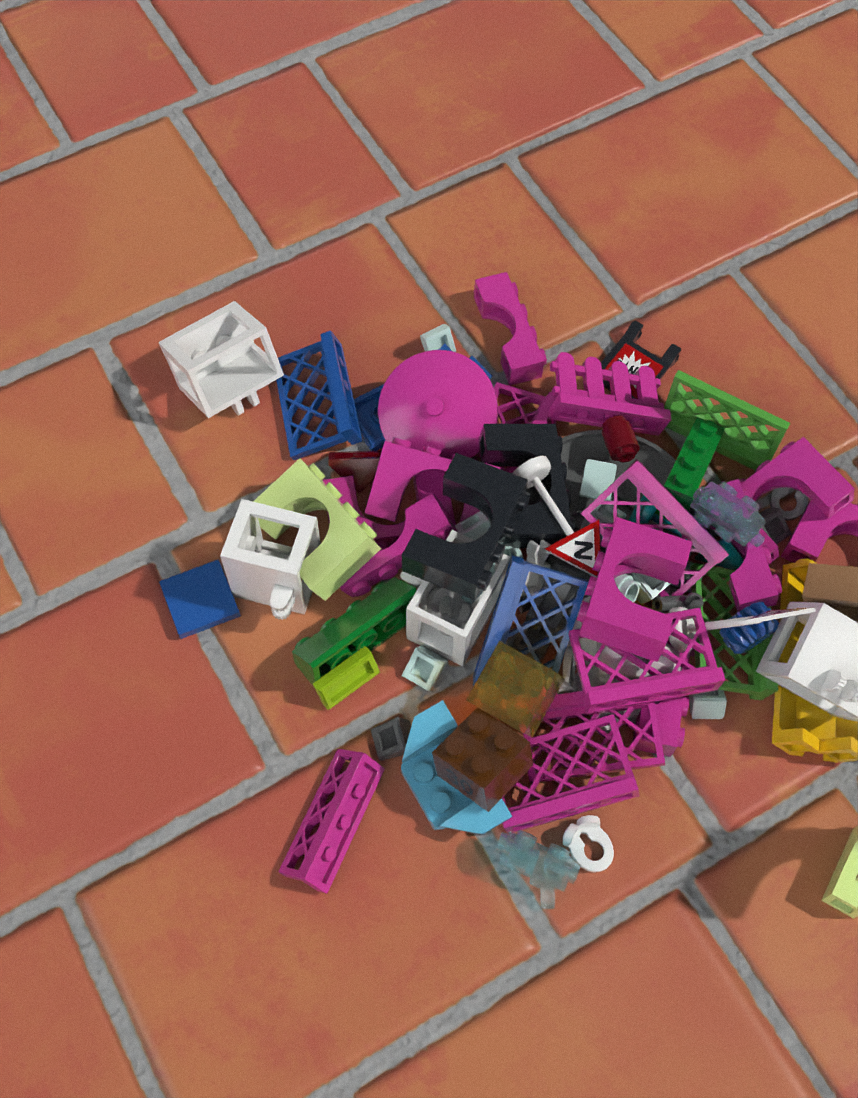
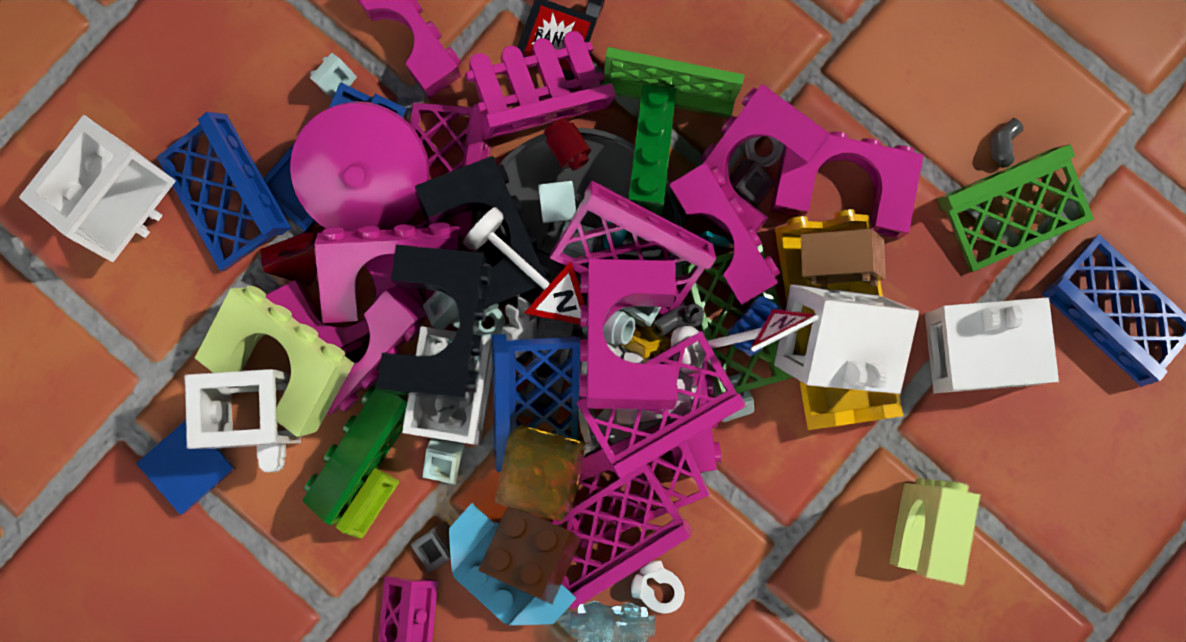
camera: 20 degrees left, 20 degrees up
(731, 516) = (707, 218): clear light blue brick -> none

